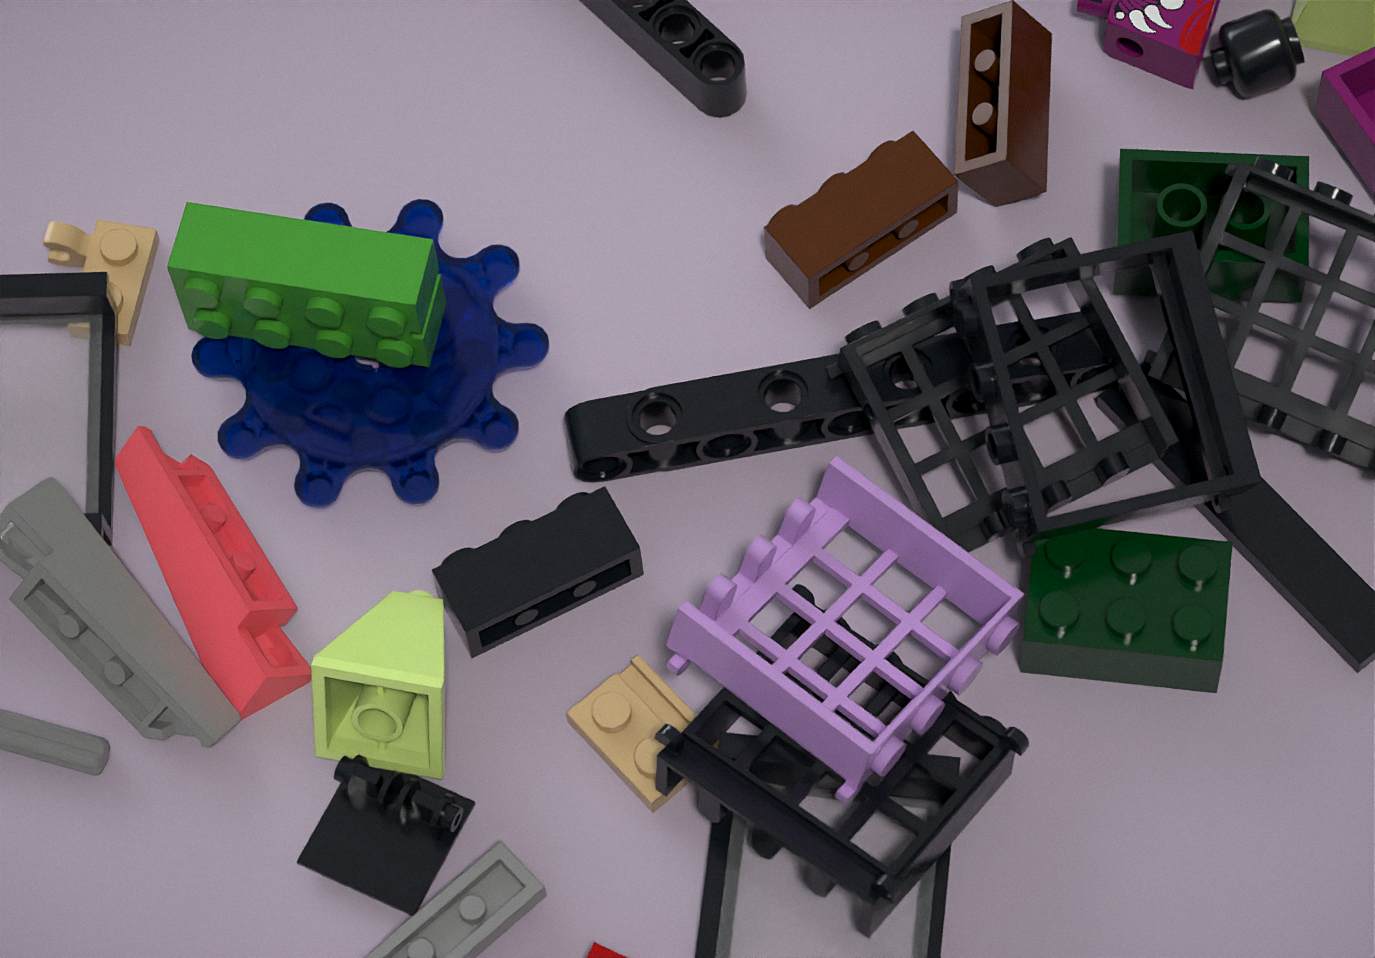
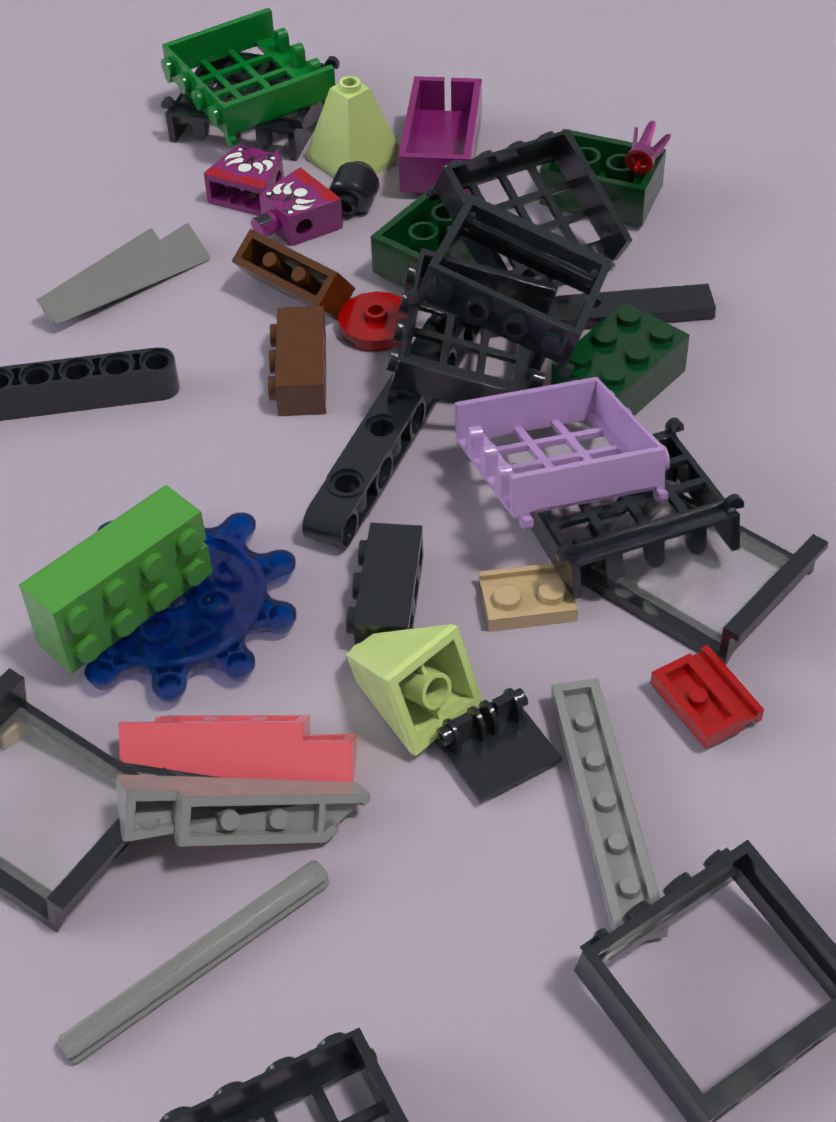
camera: 60 degrees left, 15 degrees down
(1007, 224) = (370, 320): none -> red plate

